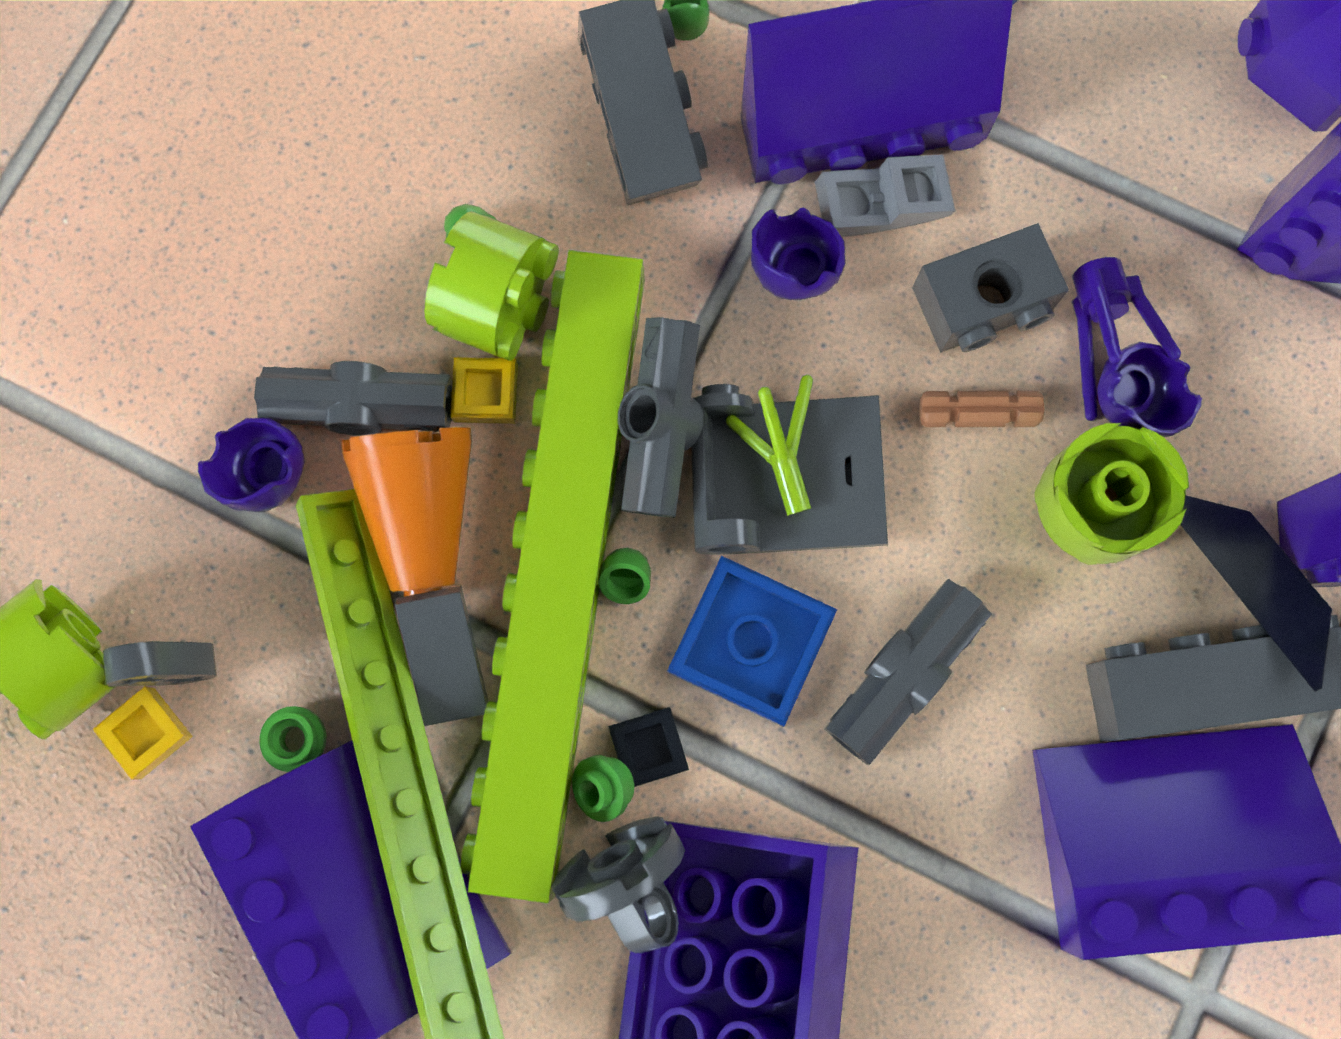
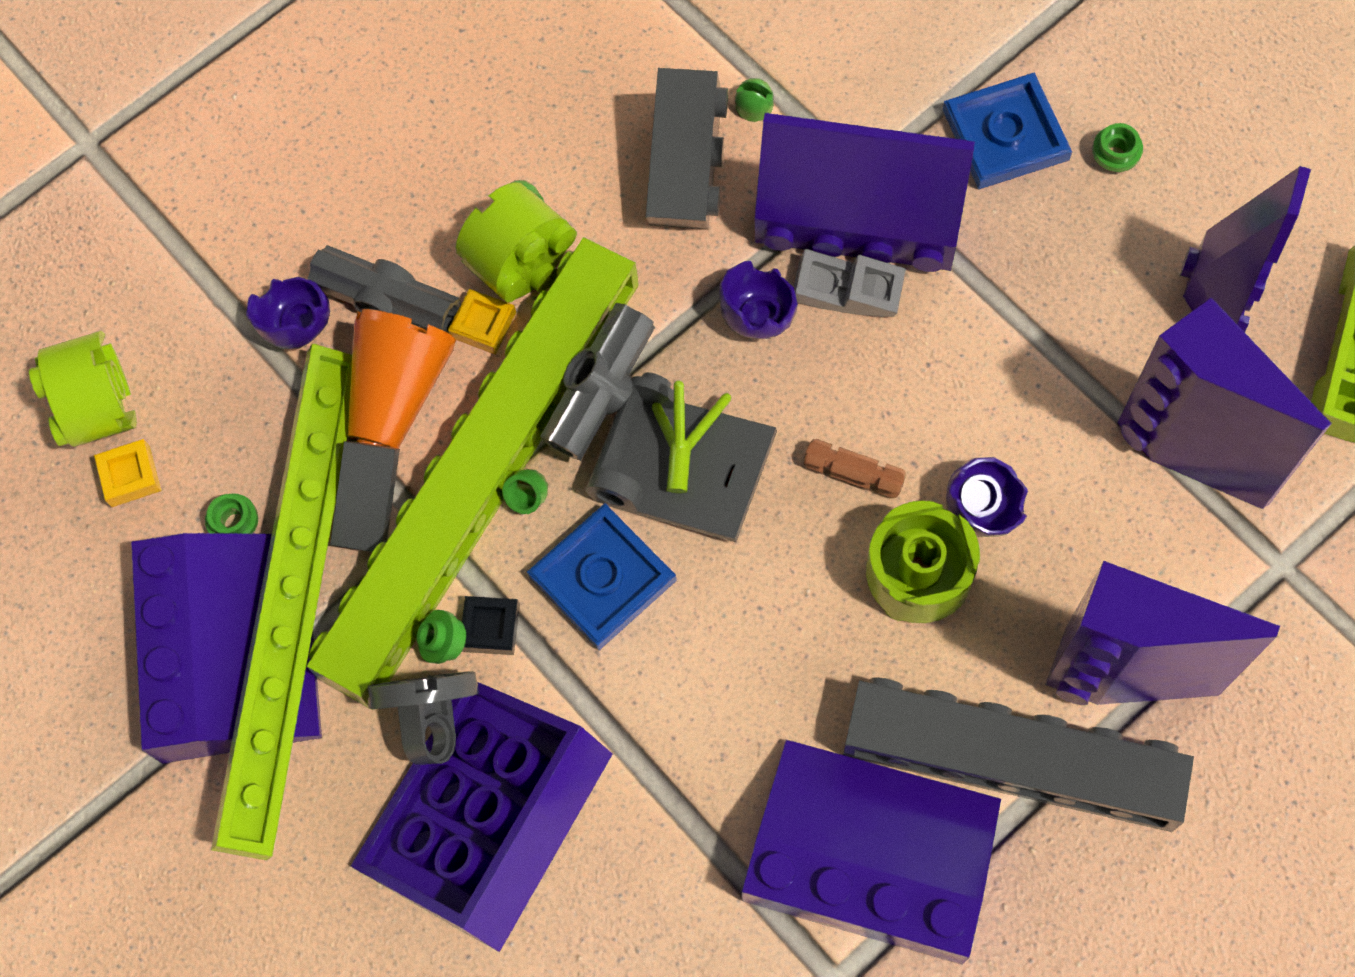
camera: 25 degrees right, 10 degrees down
(159, 663) = (161, 424): dark grey beam -> none
(908, 671) = (709, 639): dark grey piece -> none
(1015, 265) = (920, 363): dark grey brick -> none
(1102, 298) = (983, 417): dark purple plant -> none
(1264, 582) = (1015, 669): black sticker -> none

